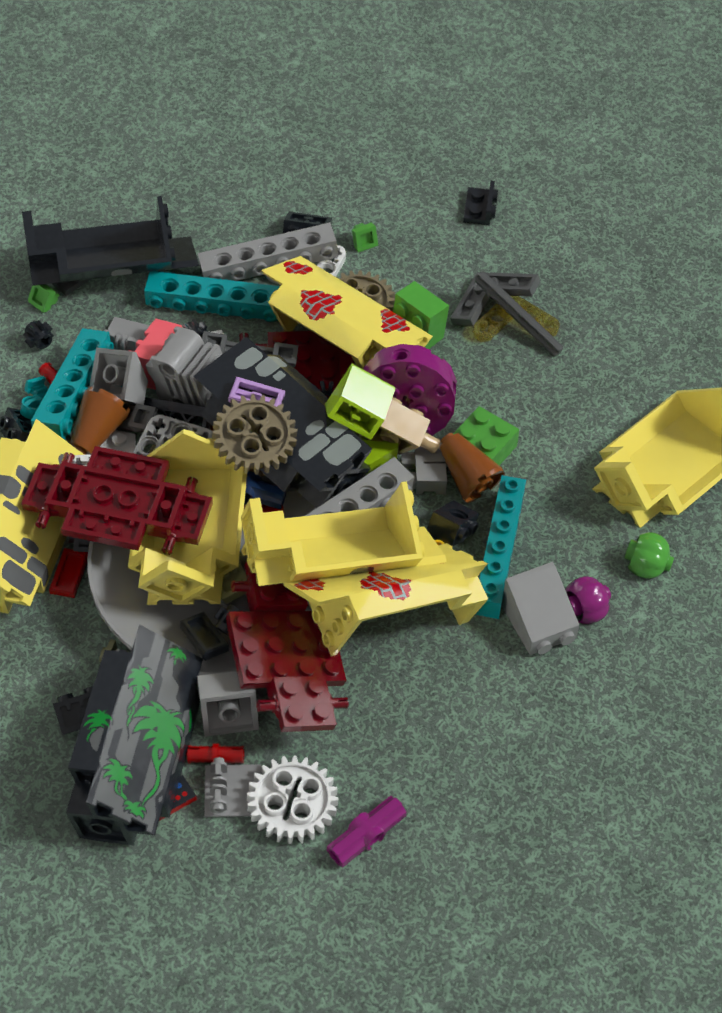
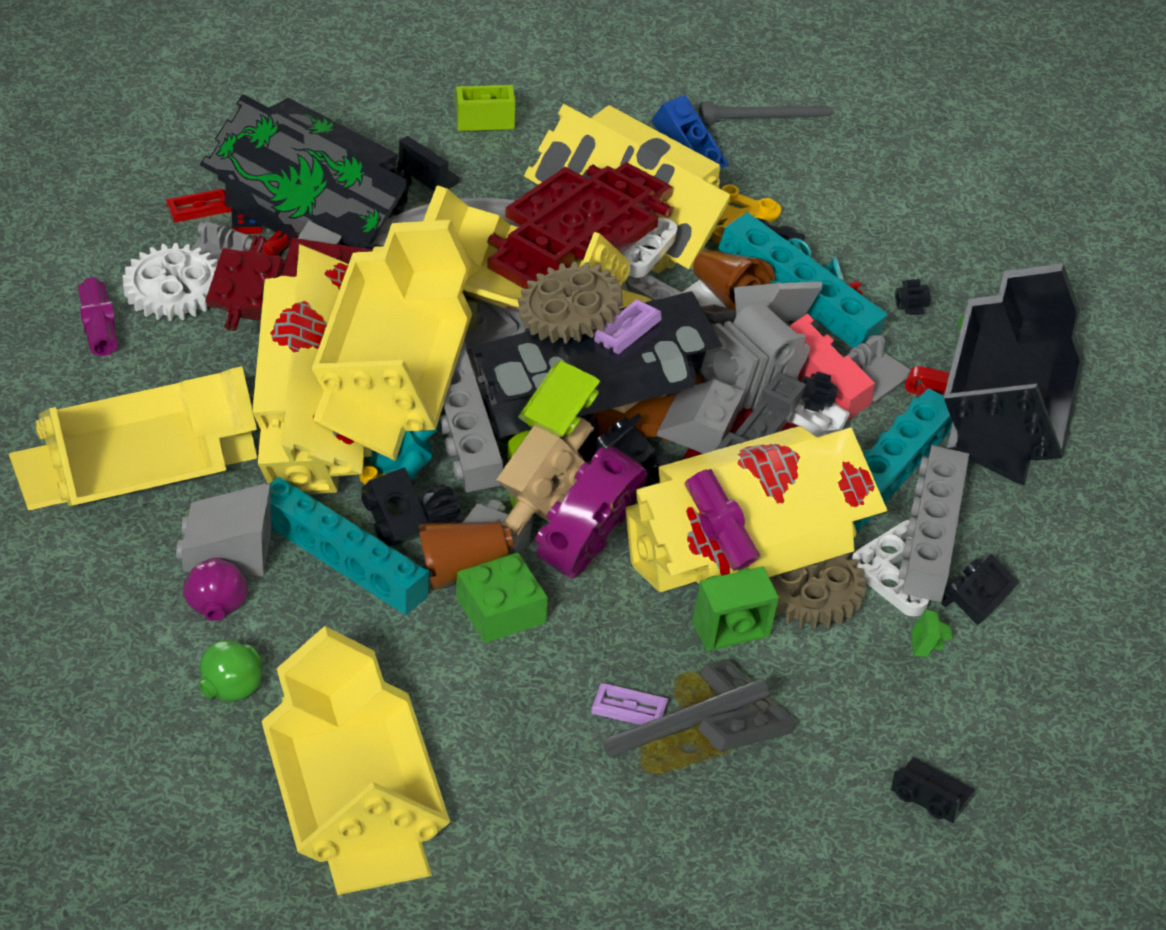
camera: 115 degrees right, 10 degrees down
(42, 688) = (425, 165): none -> black bracket
(125, 299) = (931, 378): none -> red beam
(192, 857) = (199, 208): none -> red tile
(384, 310) = (722, 519): none -> magenta piece
(435, 496) = (440, 504): none -> black gear
(489, 719) = (138, 441): none -> light yellow panel
(520, 369) = (628, 709): none -> lavender tile

